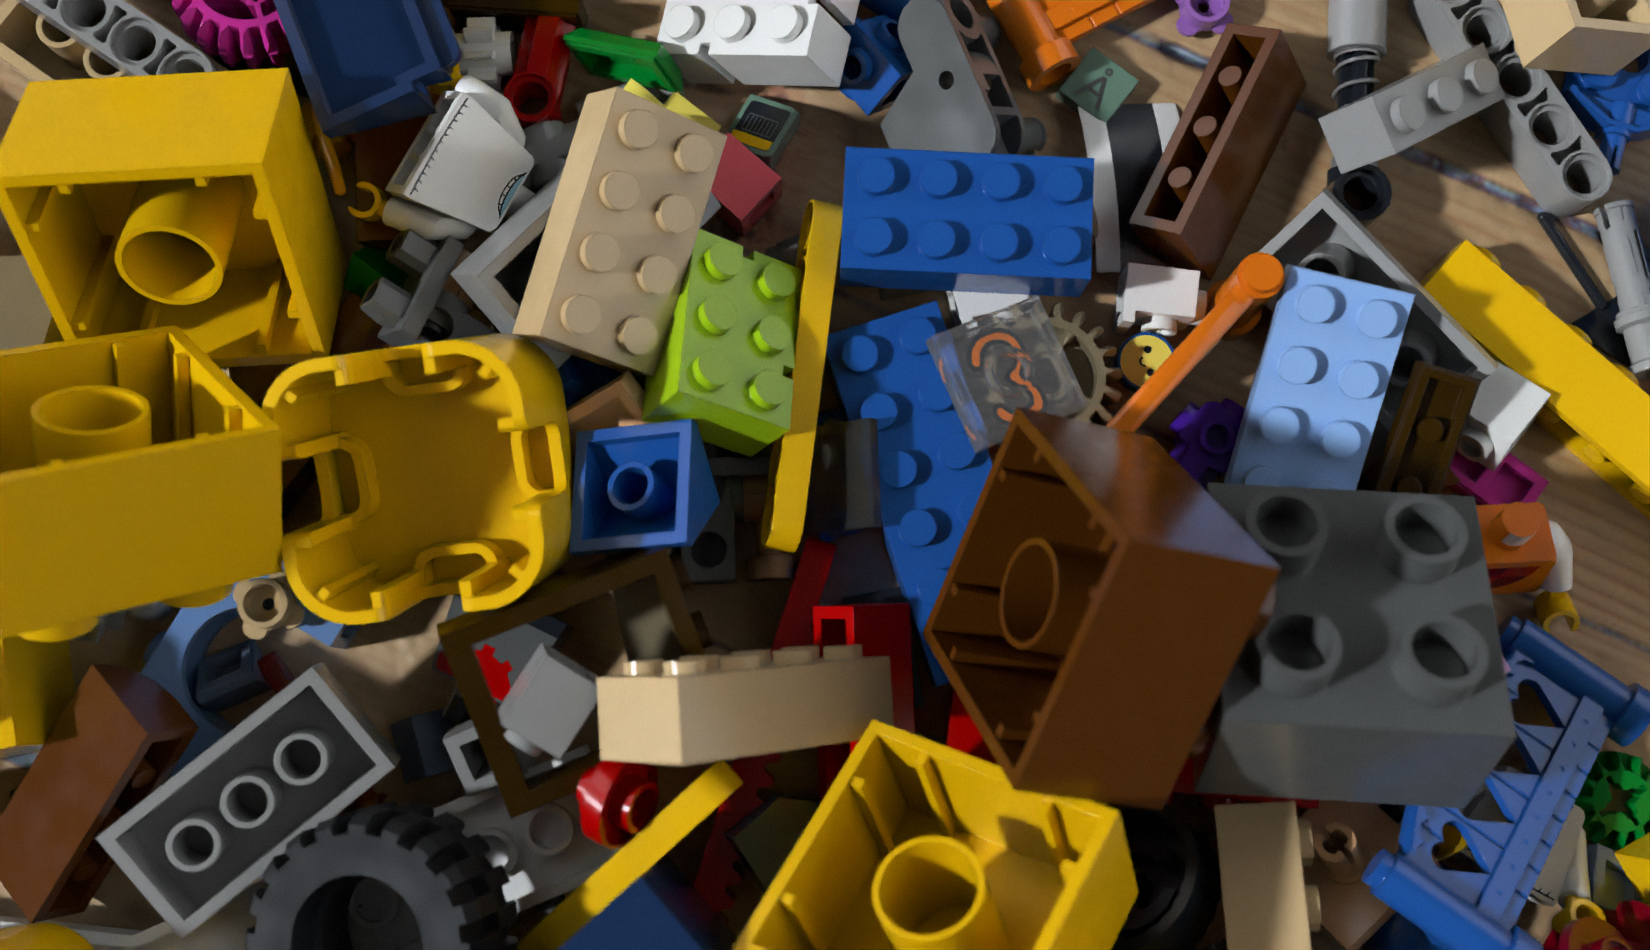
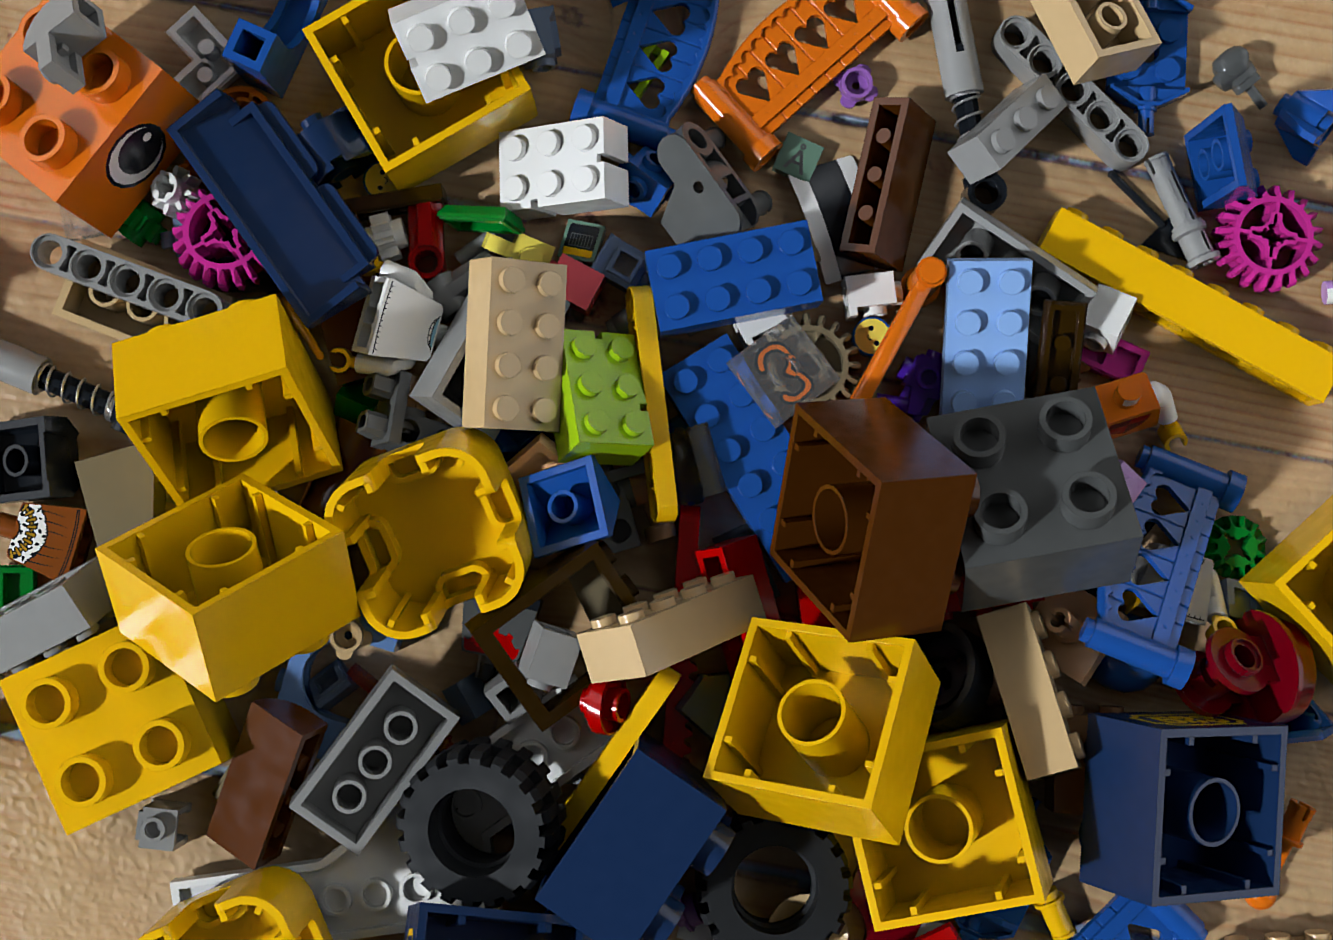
camera: 15 degrees left, 5 degrees up
(808, 169) = (621, 264): none -> sand blue window

